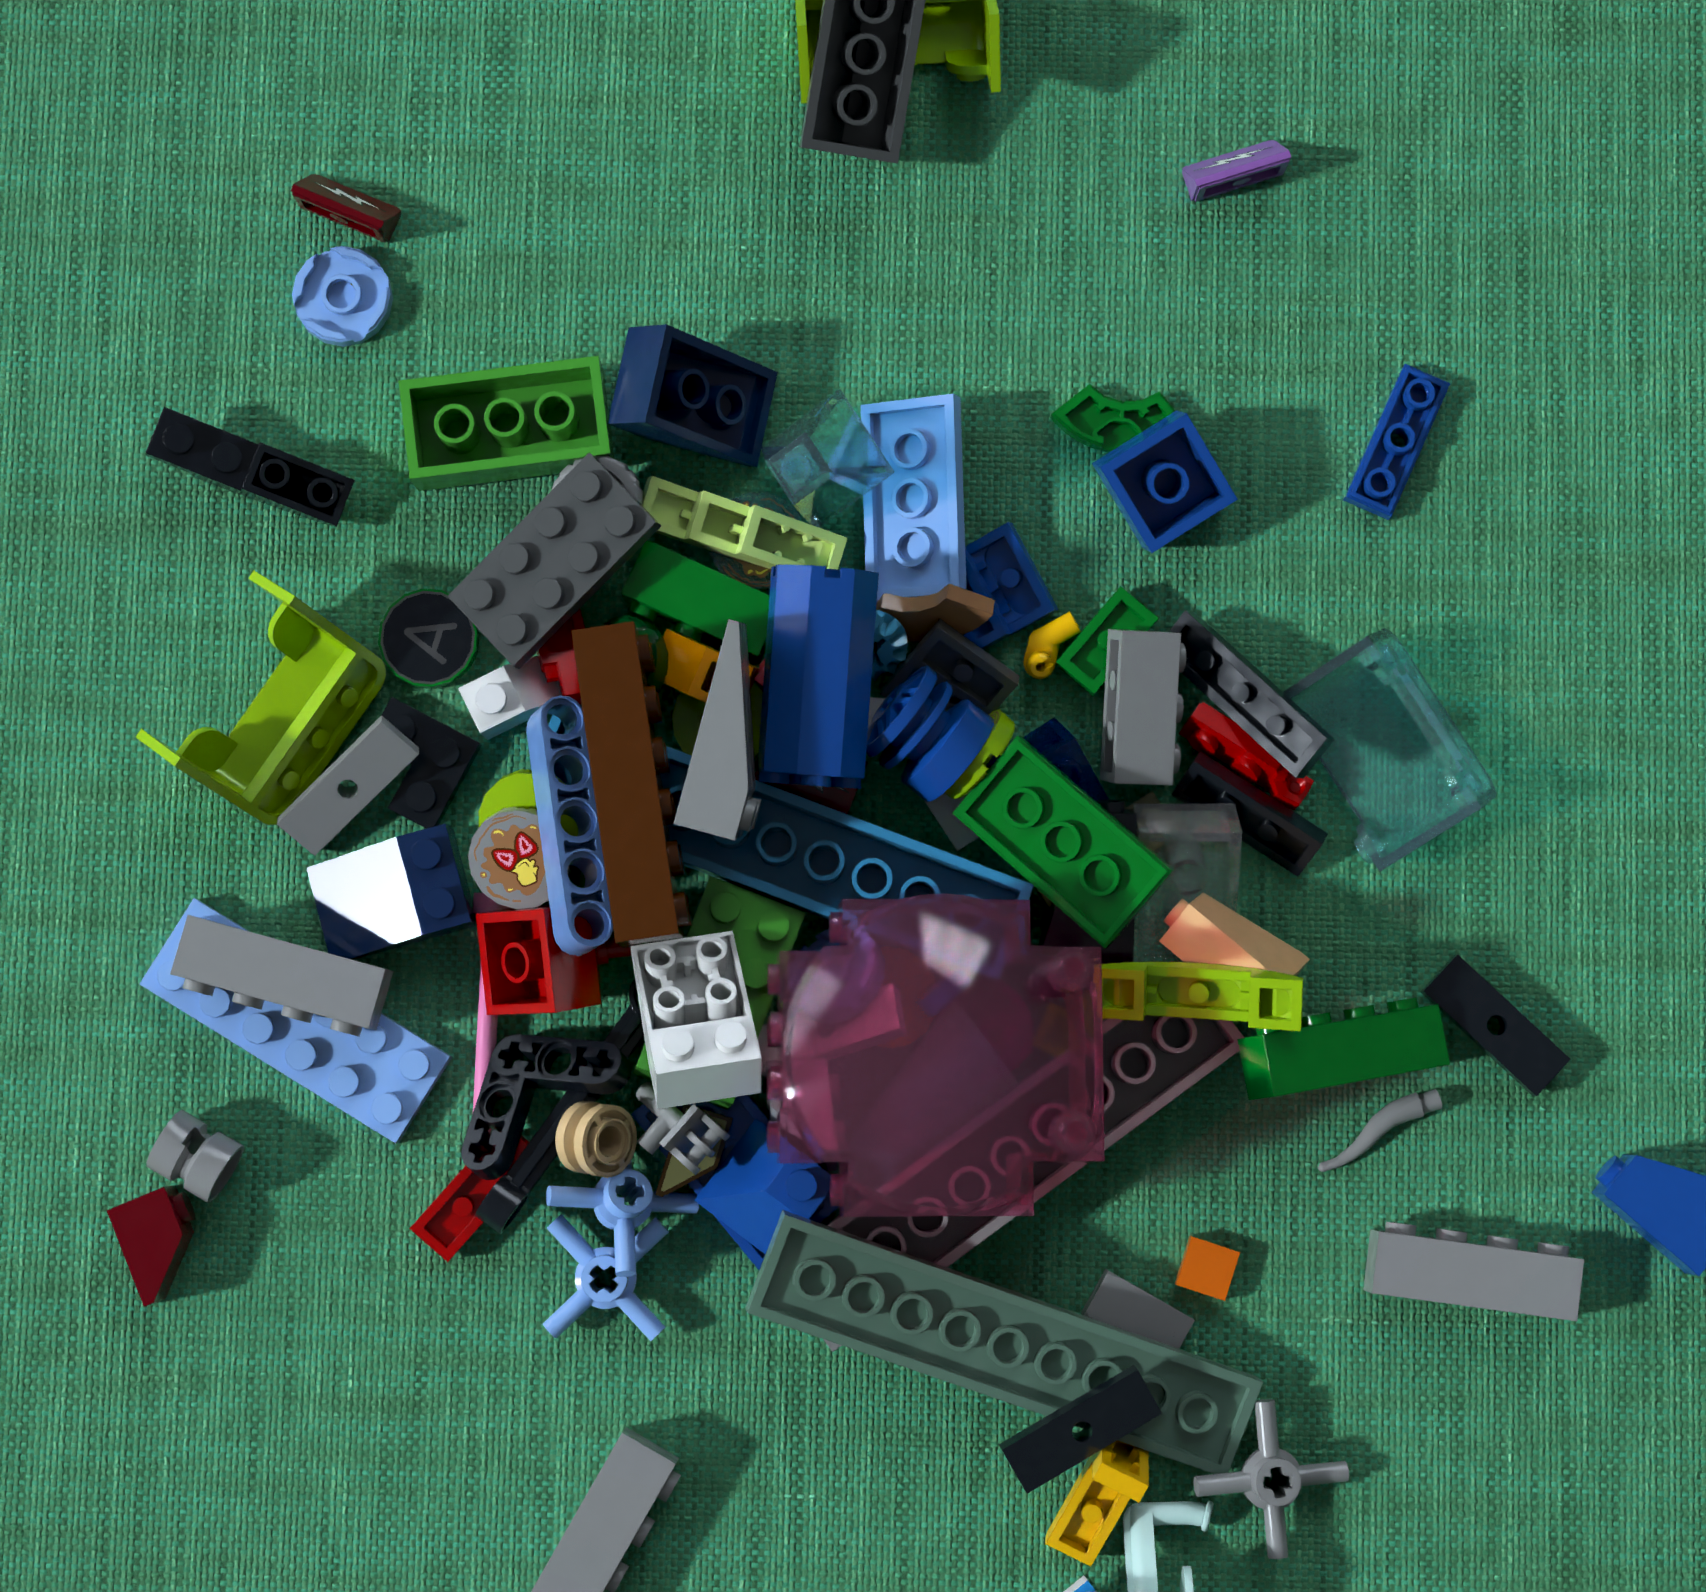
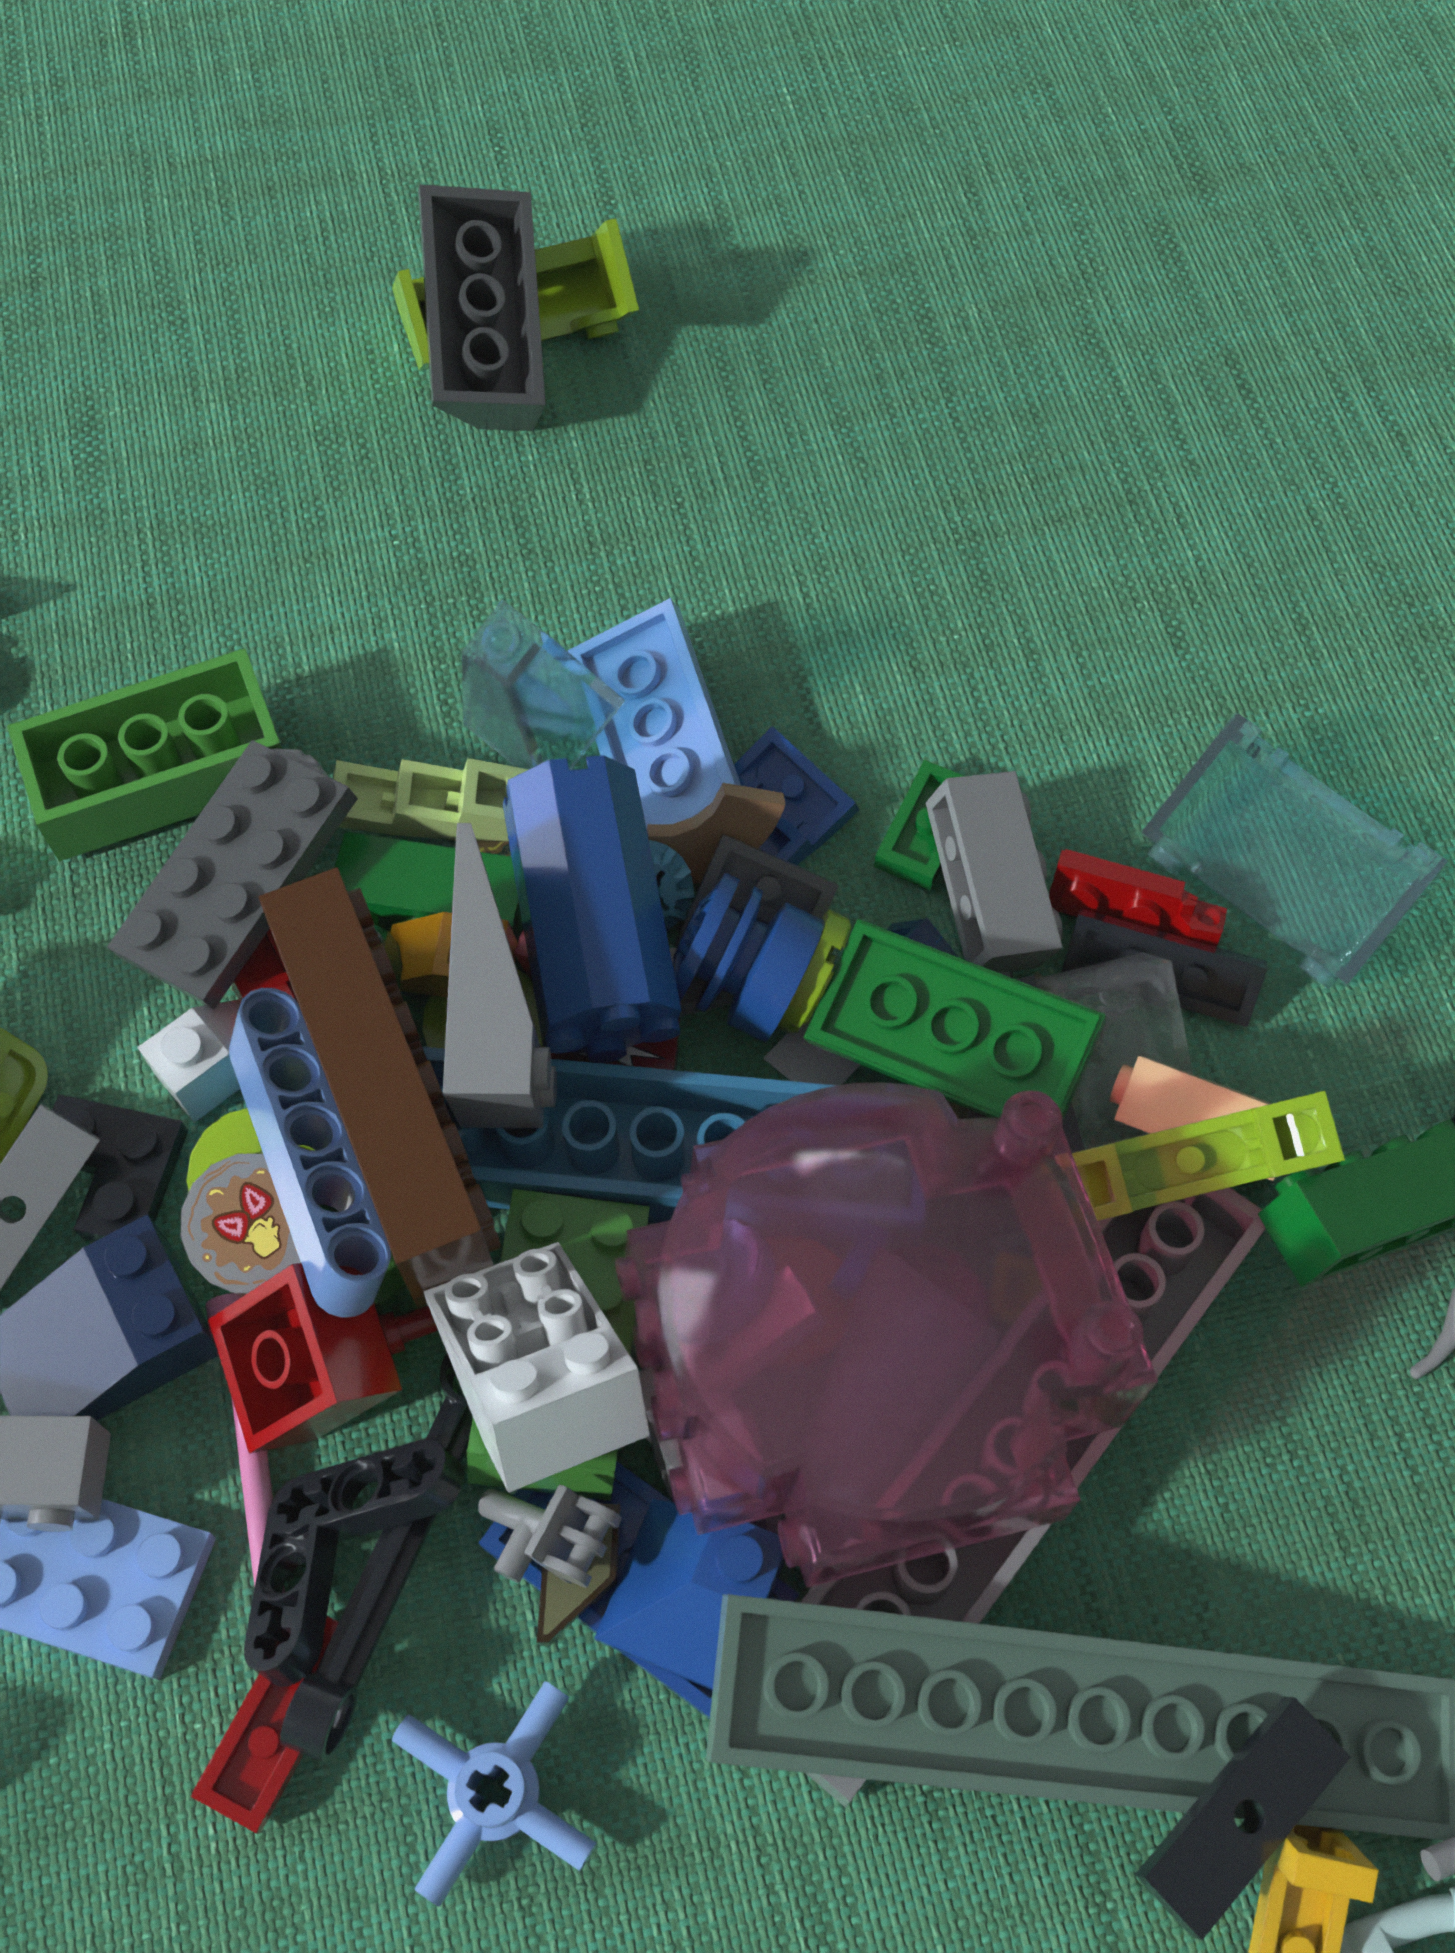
camera: 15 degrees left, 20 degrees down
(427, 639) = (96, 1019): black tile -> none
(596, 1139) = (434, 1582): tan wheel -> none
(620, 1217) = (491, 1668): light blue bar -> none
(692, 395) = (364, 673): dark blue slope -> none
(1045, 643) = (855, 843): yellow arm -> none
(1107, 422) = (867, 611): green tile -> none
(1136, 1311) = (1243, 1625): light grey slope -> none
(1164, 481) = (938, 635): blue brick -> none
(1207, 1268) = (1321, 1546): orange tile -> none
(1235, 169) = (912, 356): medium lavender slope -> none
(1250, 697) = (1128, 829): black plate -> none
(1384, 466) = (1177, 561): blue tile -> none

